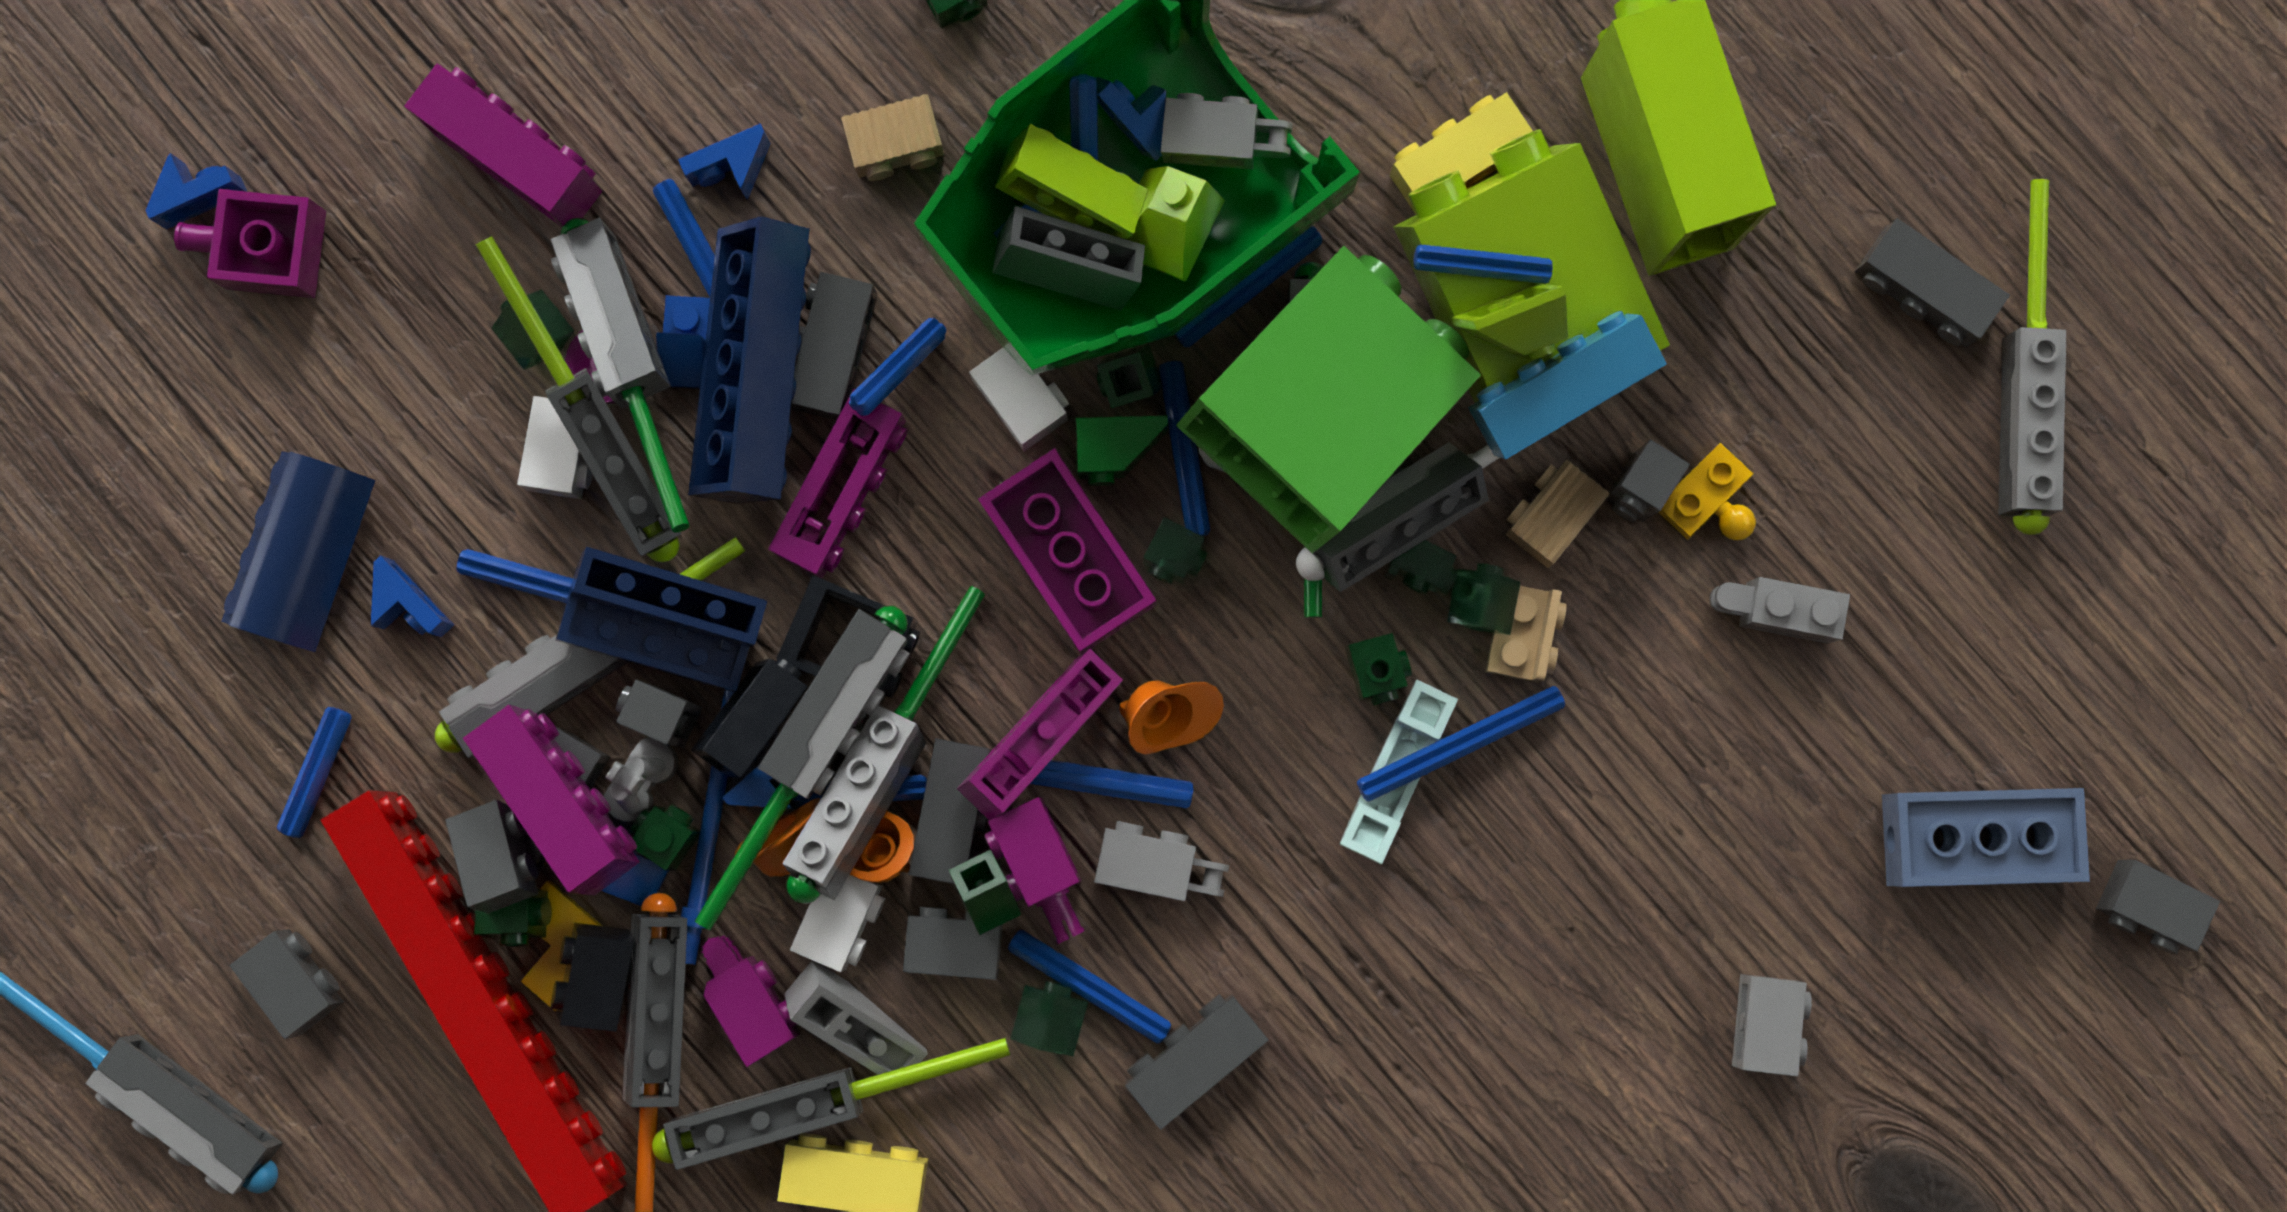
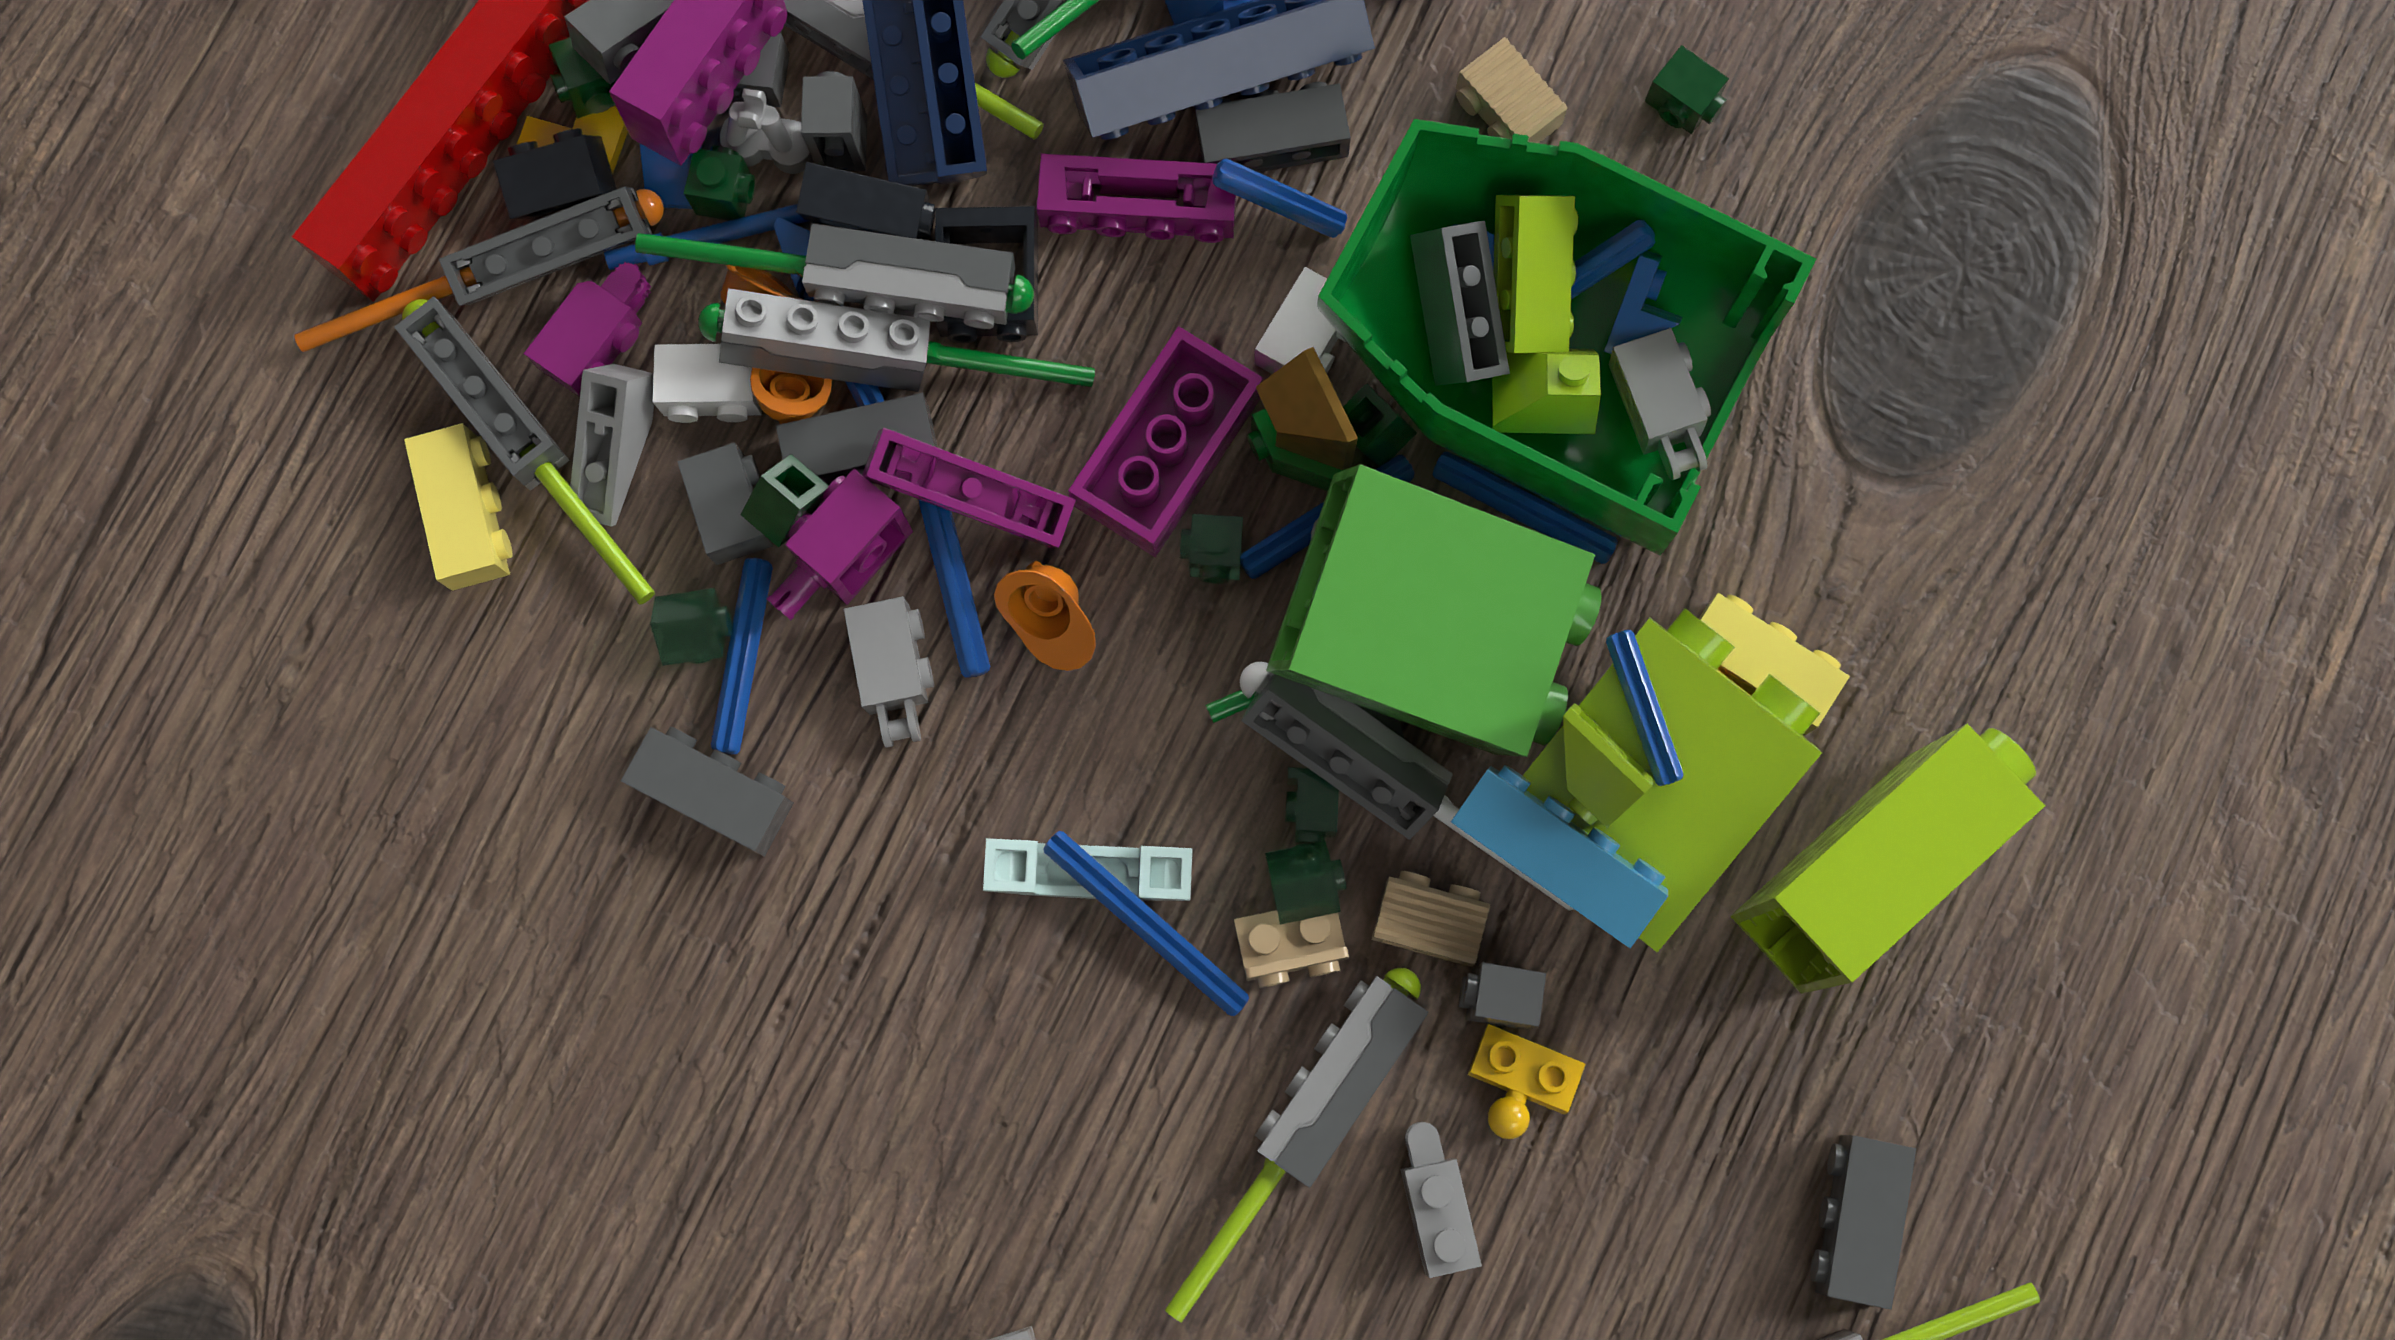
camera: 70 degrees right, 5 degrees down
(1107, 422) = (1308, 412): none -> pearl gold slope
(1378, 668) = (1186, 805): dark green brick -> none
(1667, 665) = (1320, 1109): none -> piece

